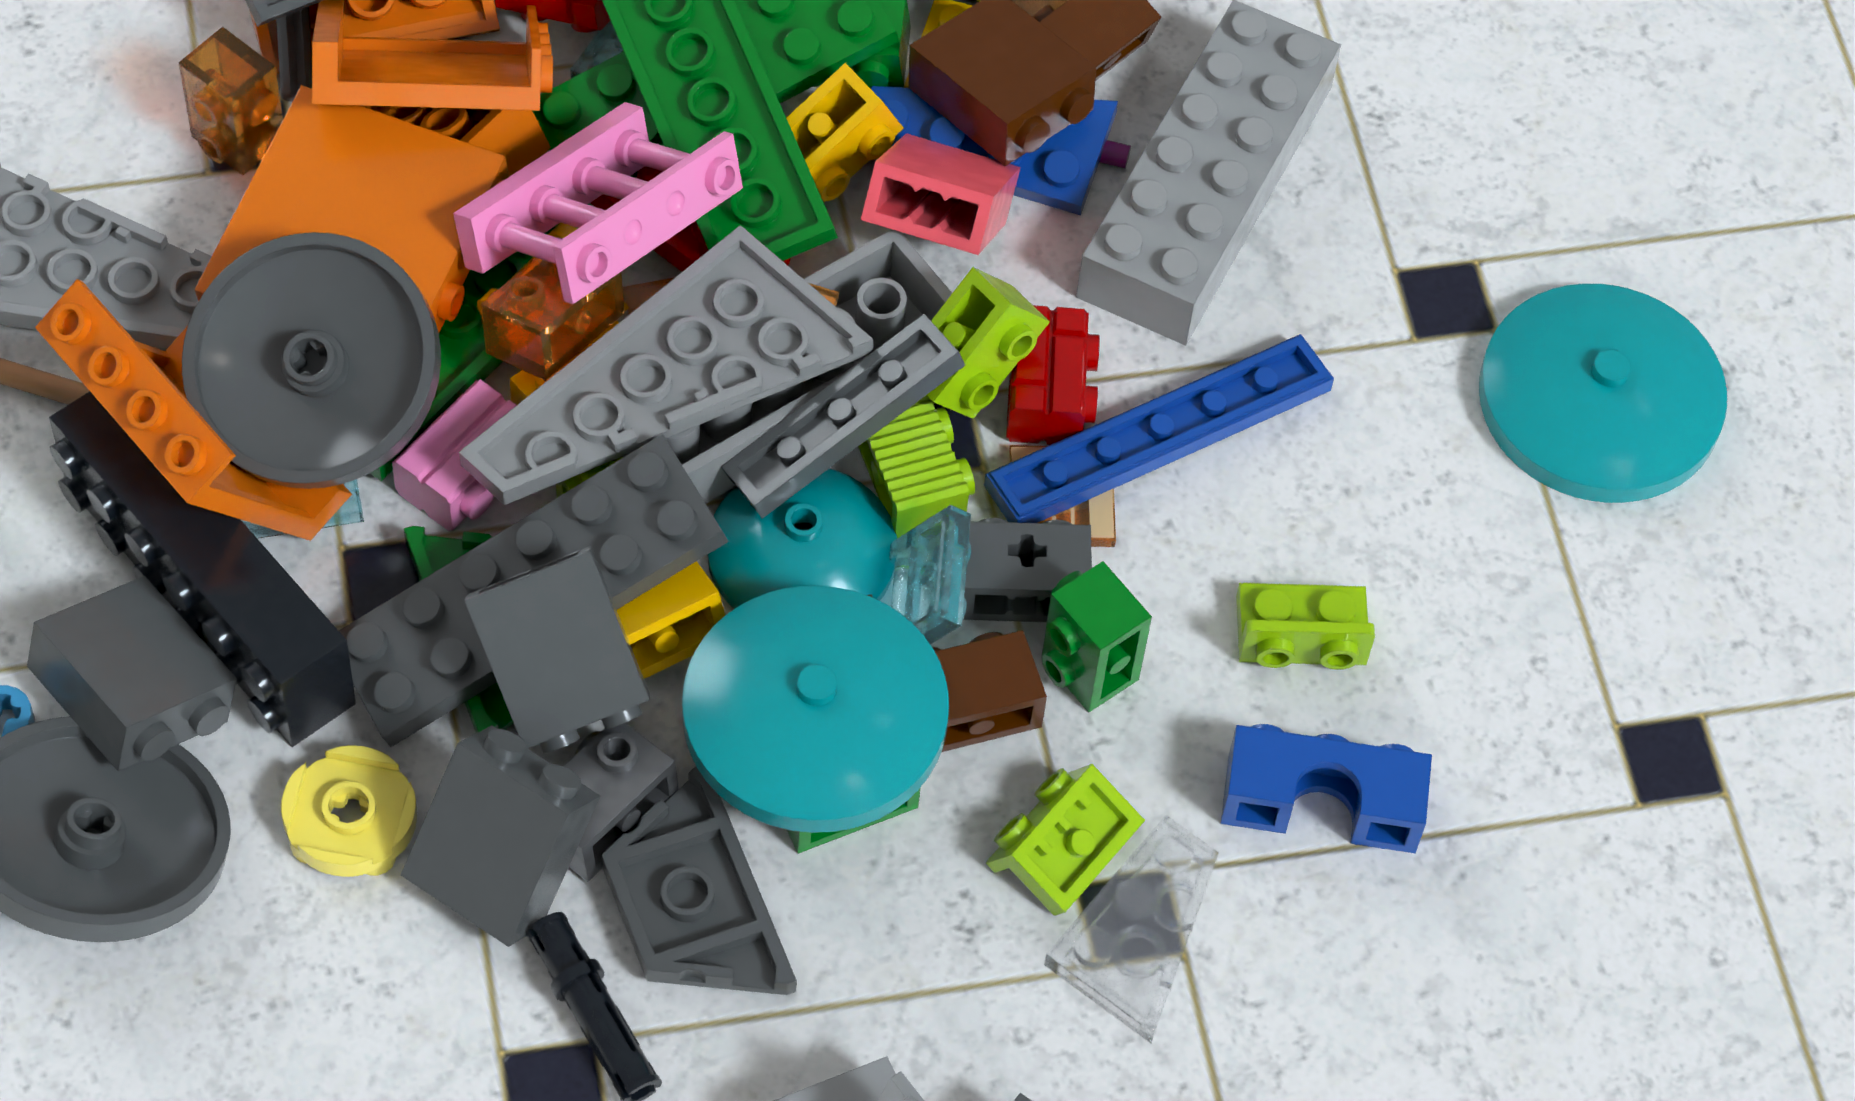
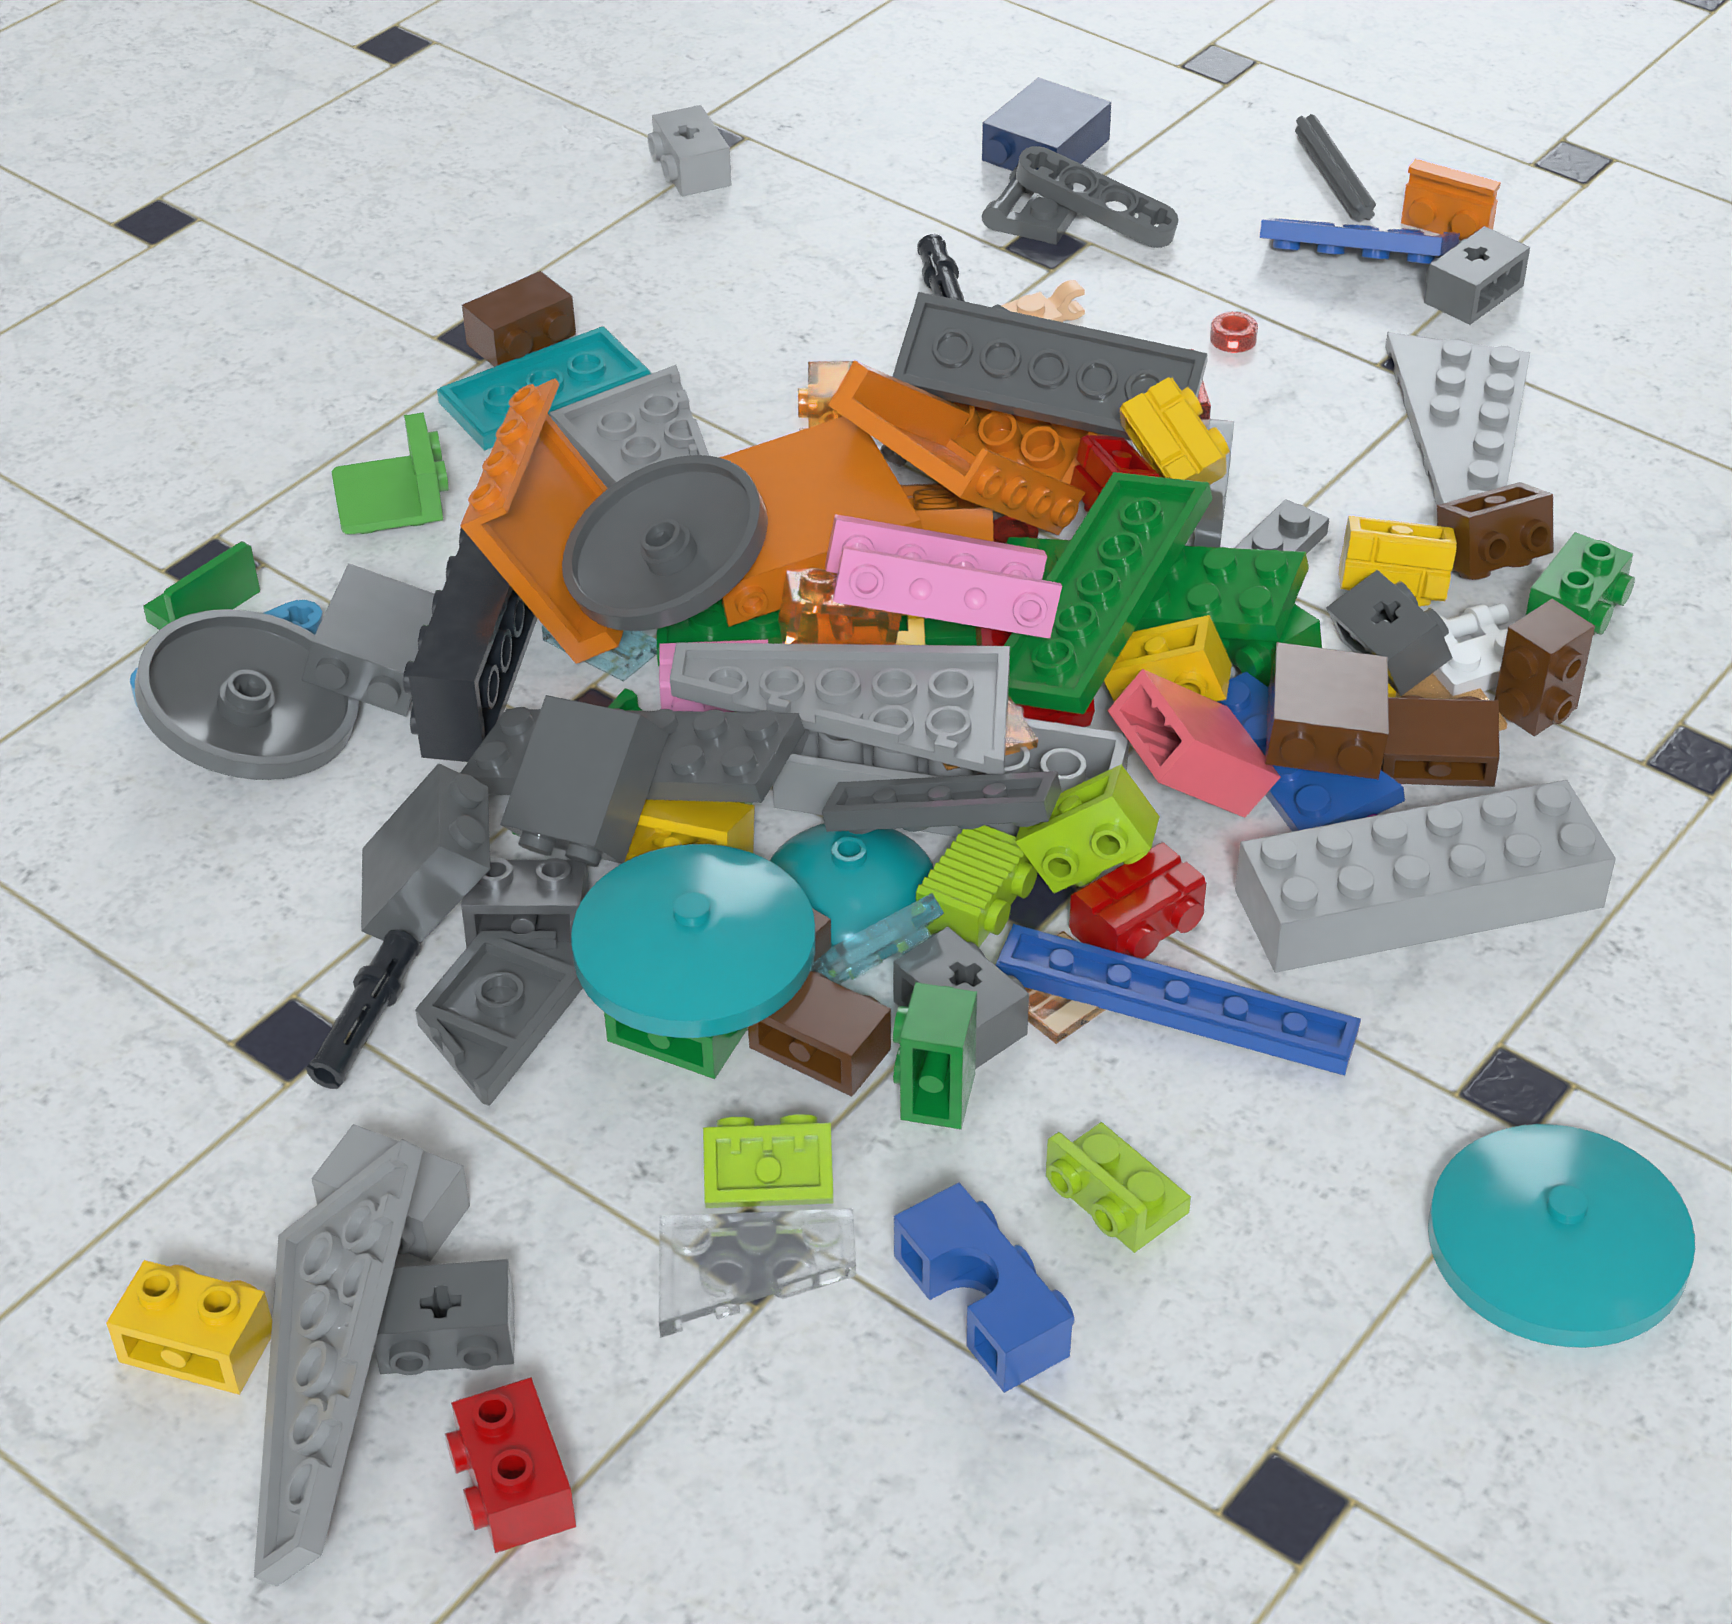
camera: 55 degrees right, 15 degrees down
(354, 847) = (367, 786): light yellow plate -> none

